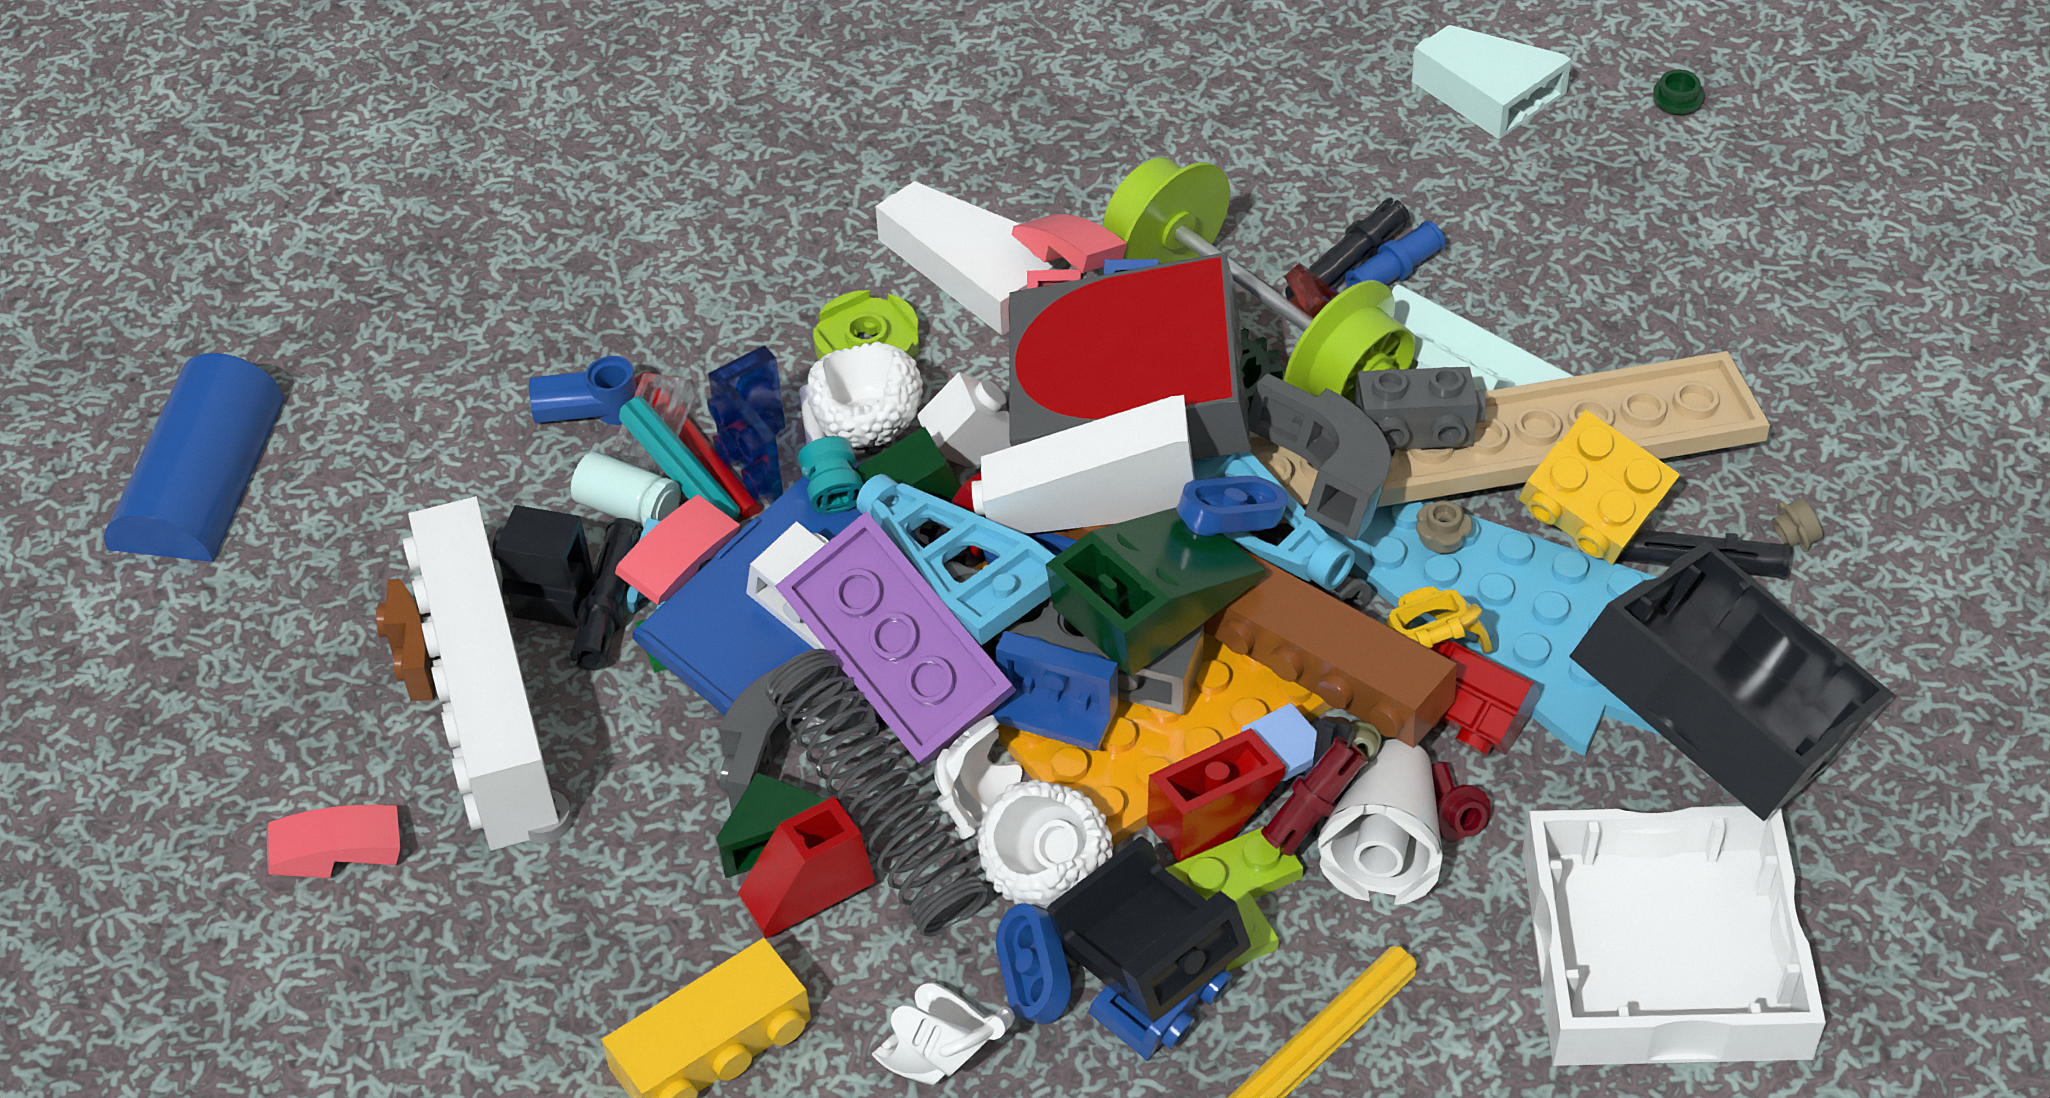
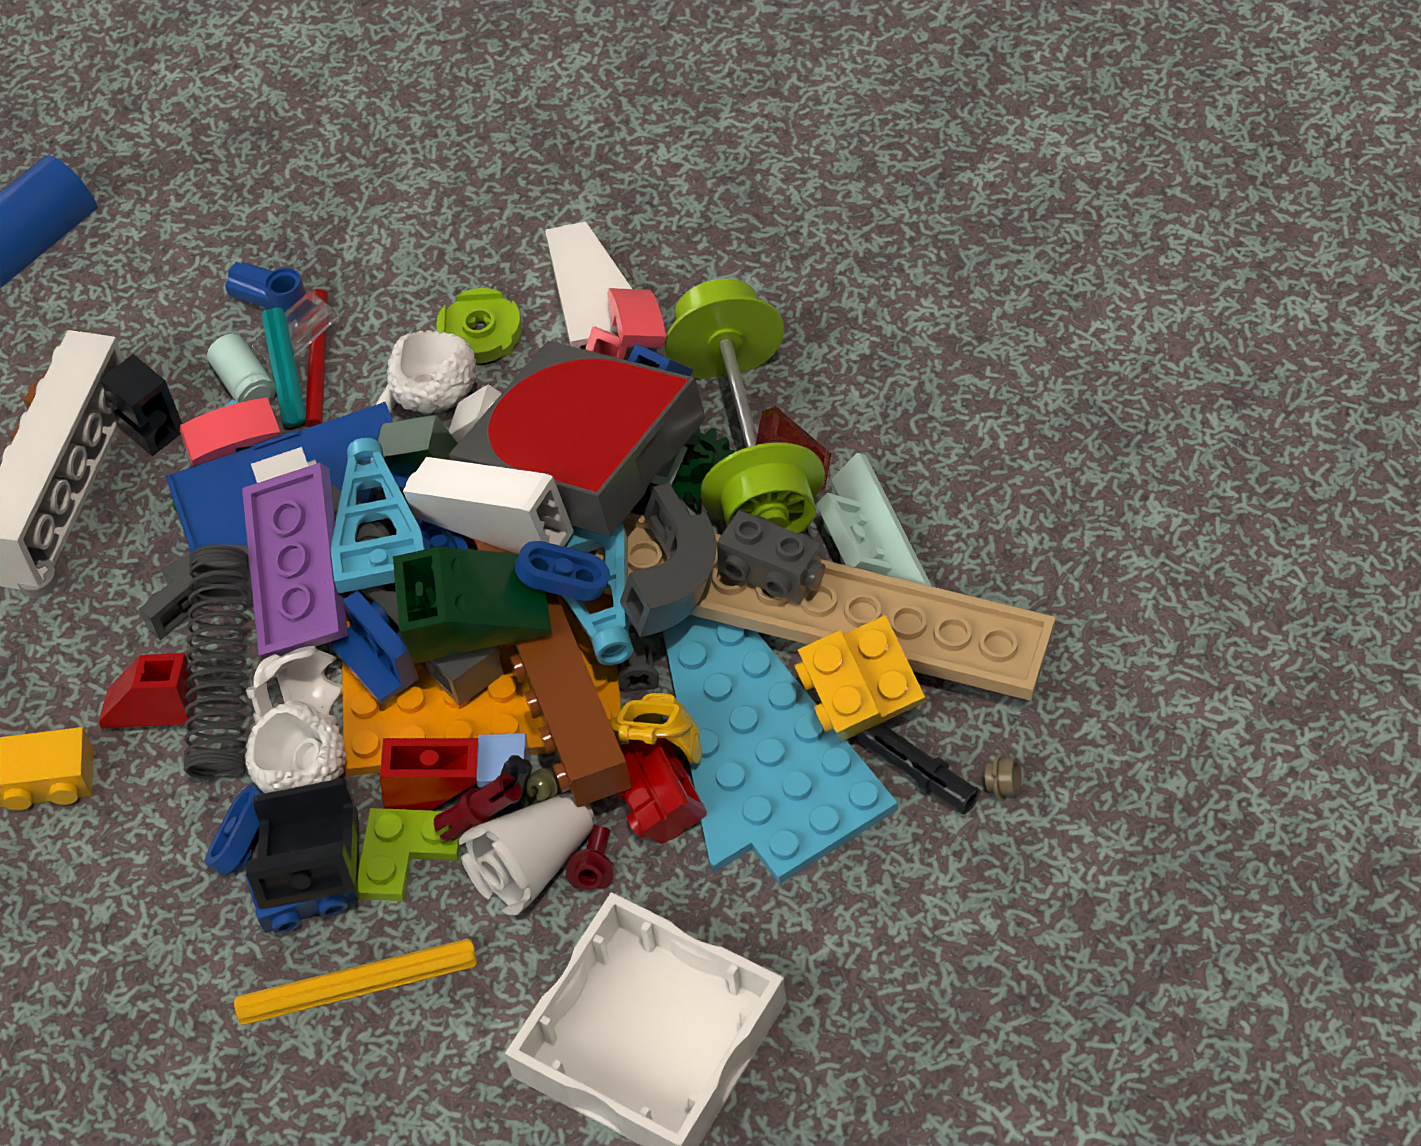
camera: 35 degrees right, 5 degrees up
(602, 609) = (170, 449): black pin -> none
(748, 418) = (343, 346): clear blue bracket -> none
(755, 820) = (150, 637): dark green slope -> none
(829, 467) = (359, 419): teal wheel -> none
(938, 1034) = (132, 857): white helmet -> none
(1359, 243) = (866, 408): black pin -> none
(1399, 257) = (885, 431): blue pin -> none
(1443, 526) = (737, 664): dark tan plate -> none
(1489, 77) = (1076, 314): light aqua slope -> none
(1678, 92) = (1216, 387): dark green plate -> none
(1731, 678) = (812, 868): black tile -> none

